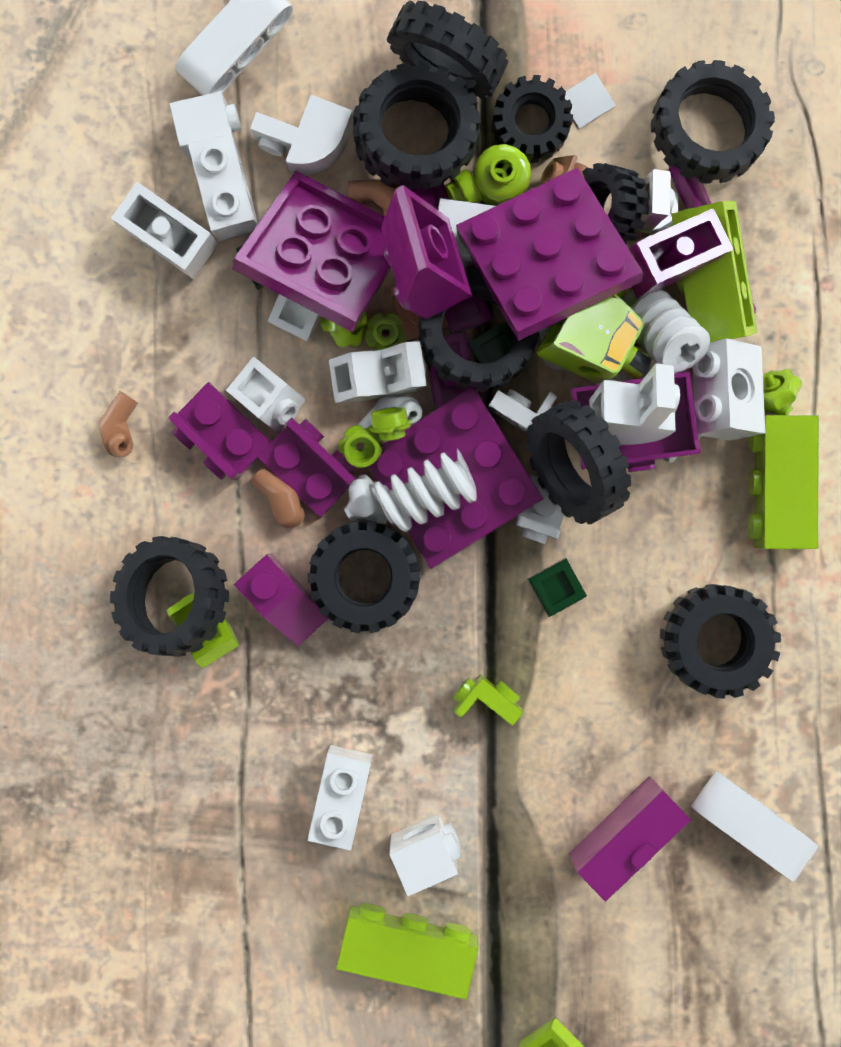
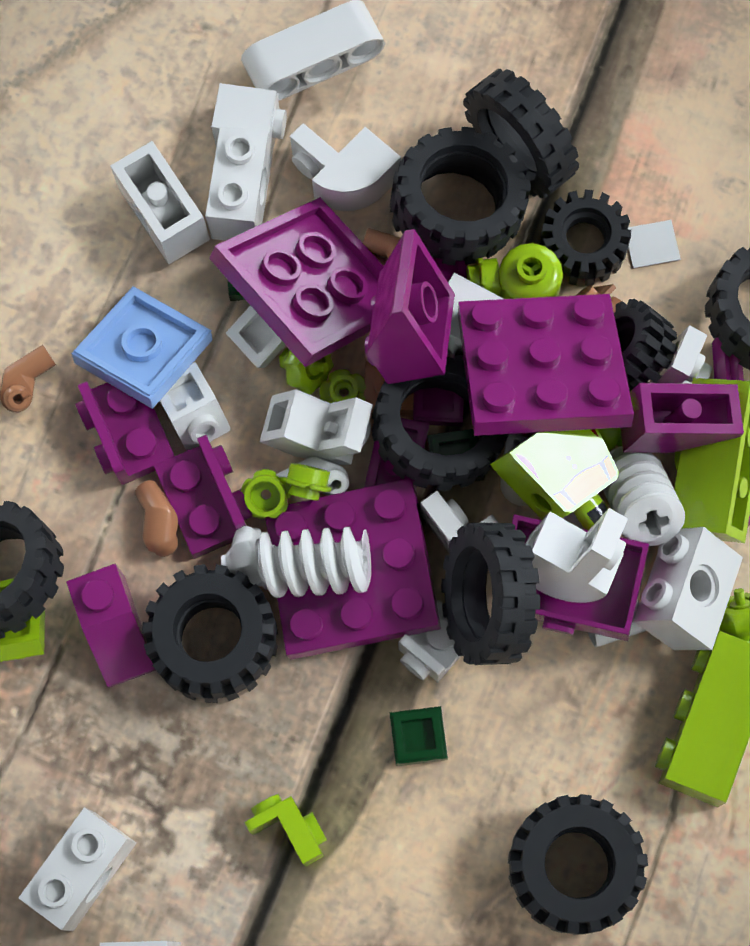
camera: 25 degrees right, 15 degrees down
(204, 361) = (142, 347): none -> light blue tile

